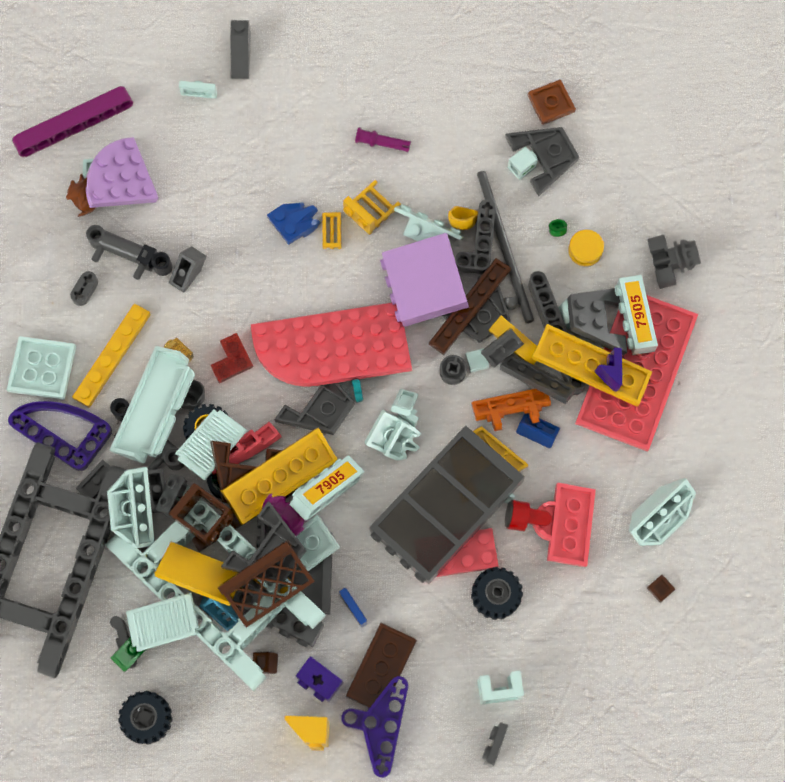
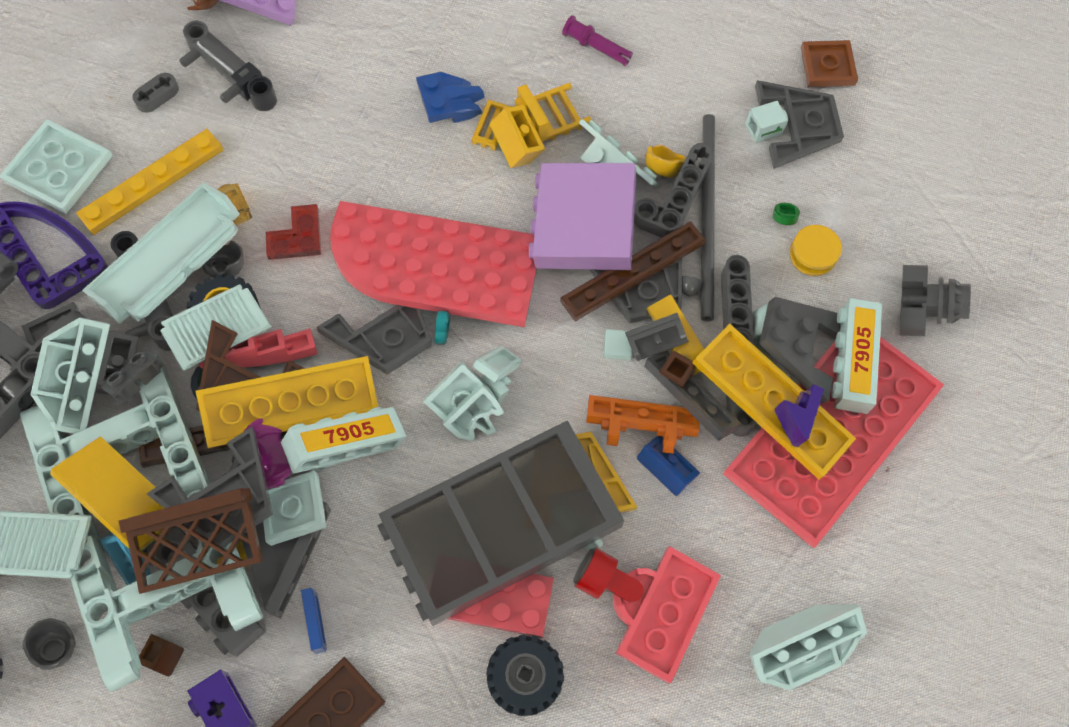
camera: 15 degrees right, 5 degrees down
(187, 268) = (290, 108): dark grey slope -> none
(188, 501) = (133, 400): reddish brown window -> none
(195, 680) = (49, 643): none -> dark grey hair
(355, 236) = (517, 136): none -> yellow brick
(453, 369) = (580, 344): dark grey wheel -> none
(523, 365) = (678, 369): none -> reddish brown slope

